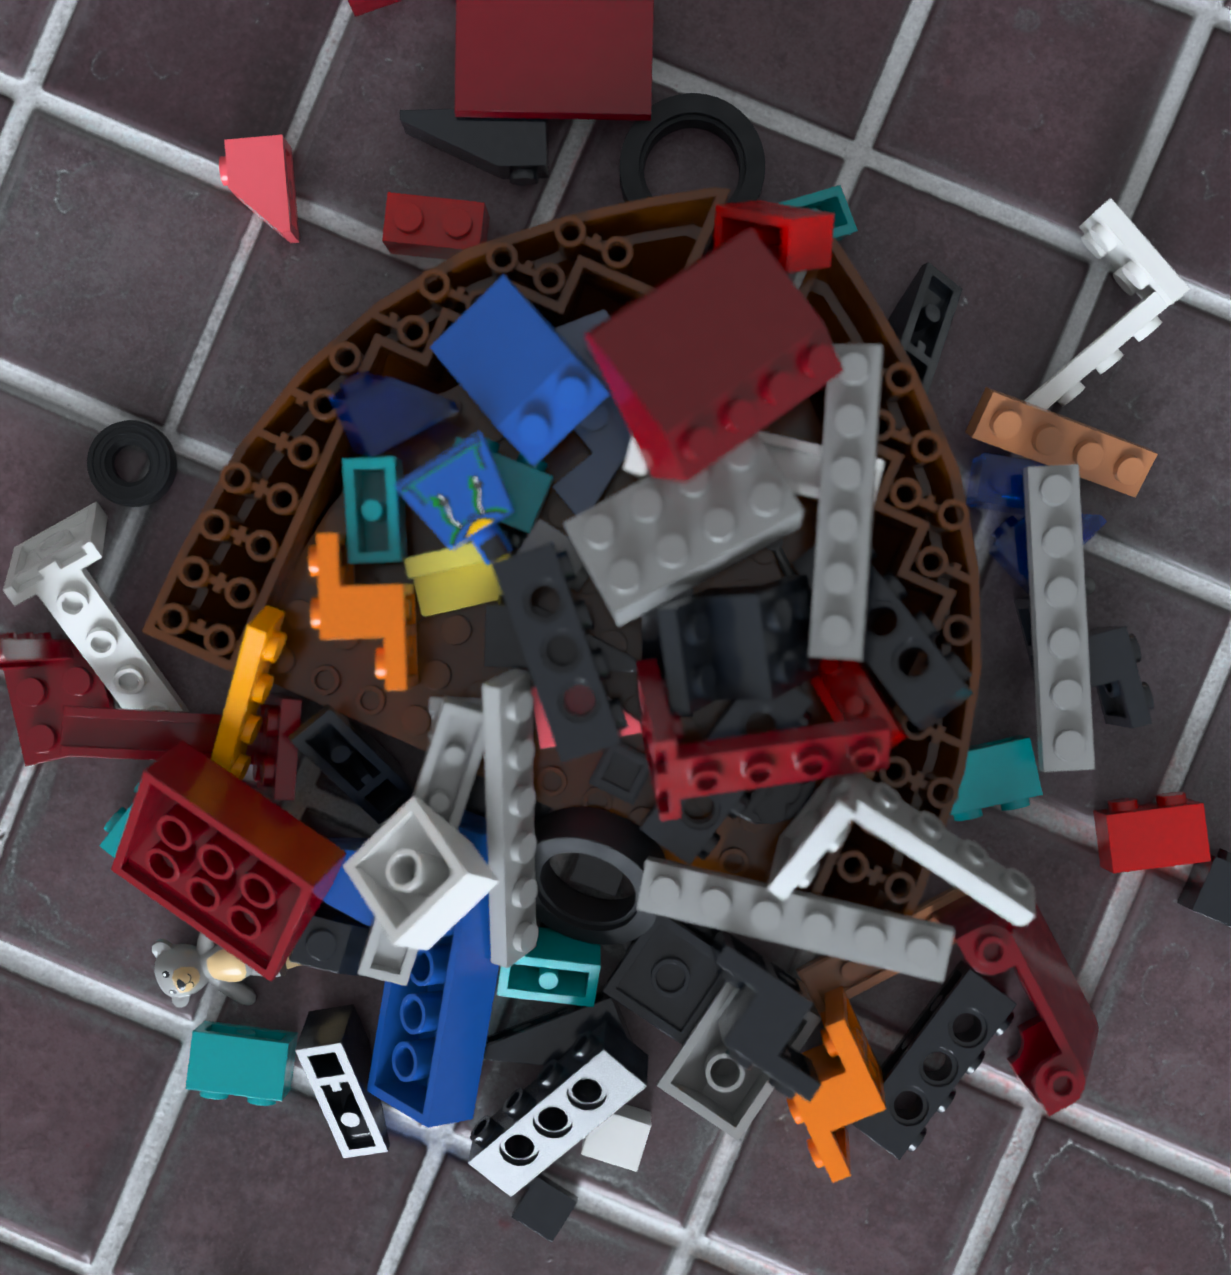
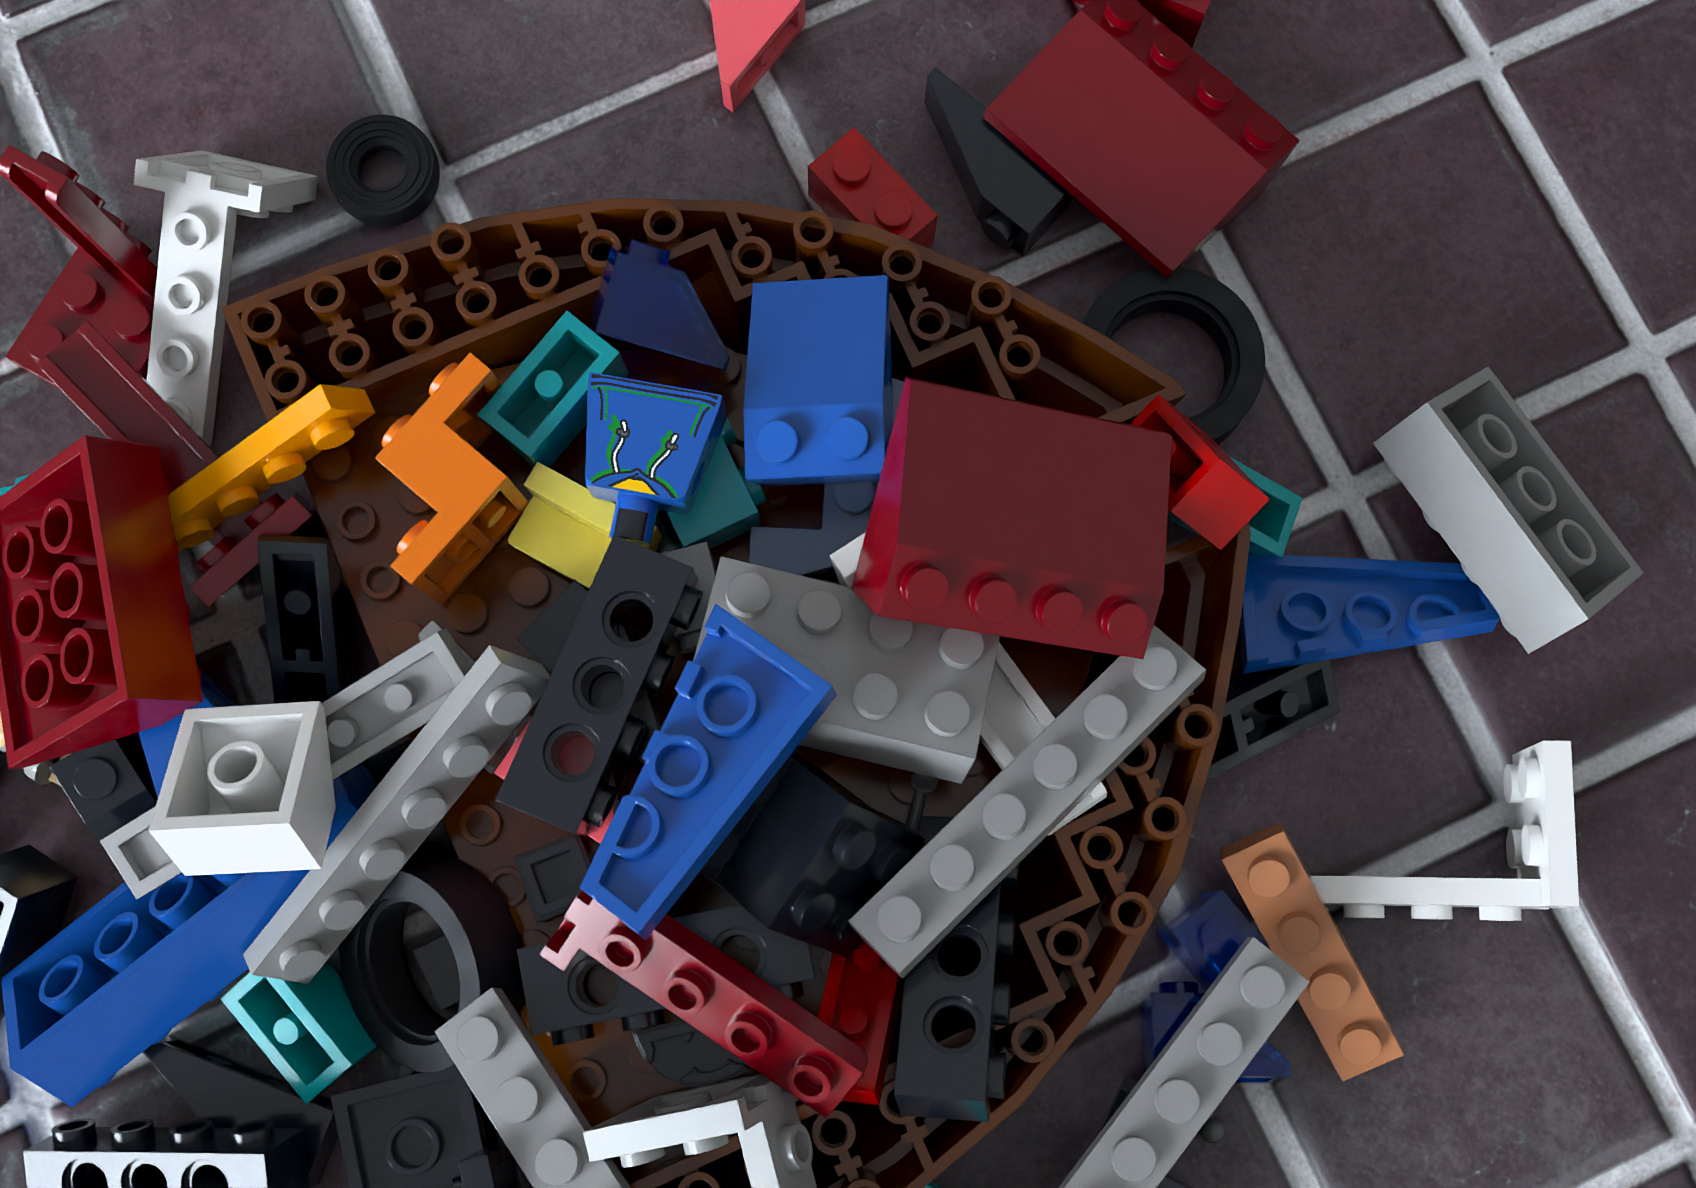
camera: 40 degrees right, 10 degrees down
(664, 628) = (722, 743): none -> blue wing
(920, 221) = (1345, 607): none -> blue wing
(963, 86) = (1508, 510): none -> light grey brick

